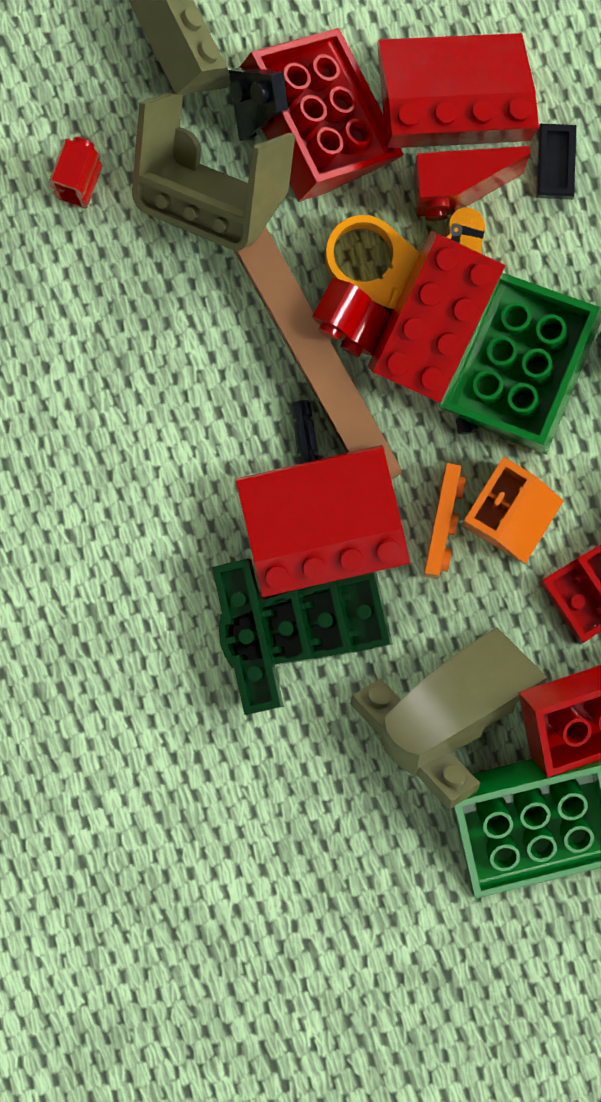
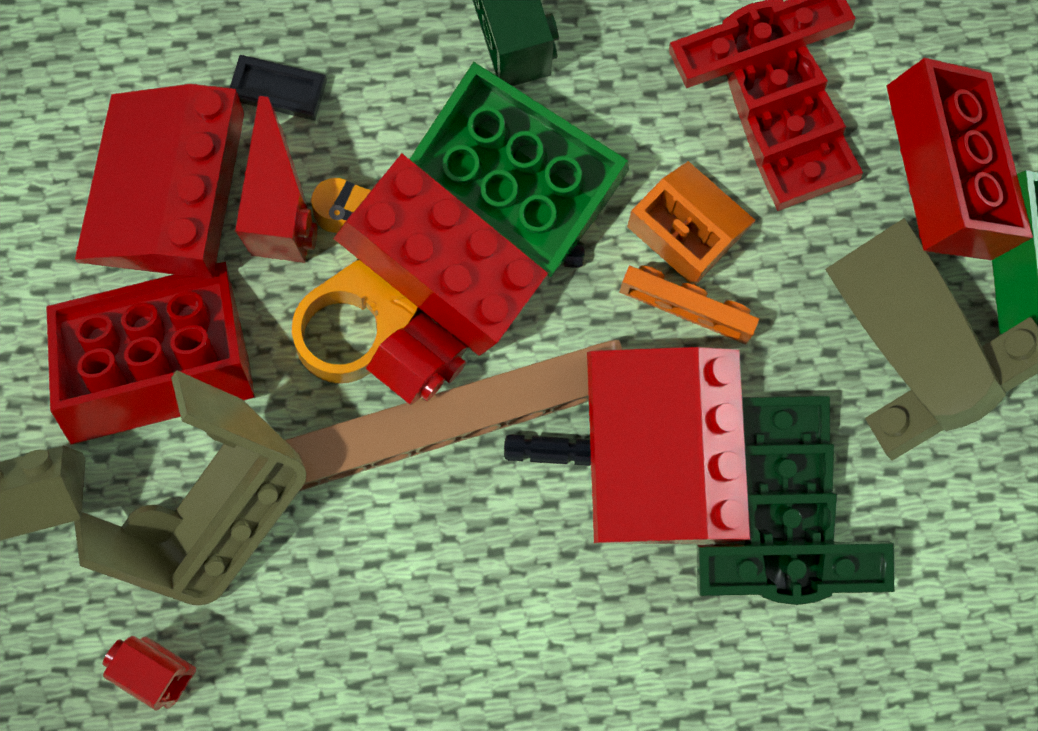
camera: 85 degrees left, 5 degrees down
(257, 98) = (112, 417): black wing -> none

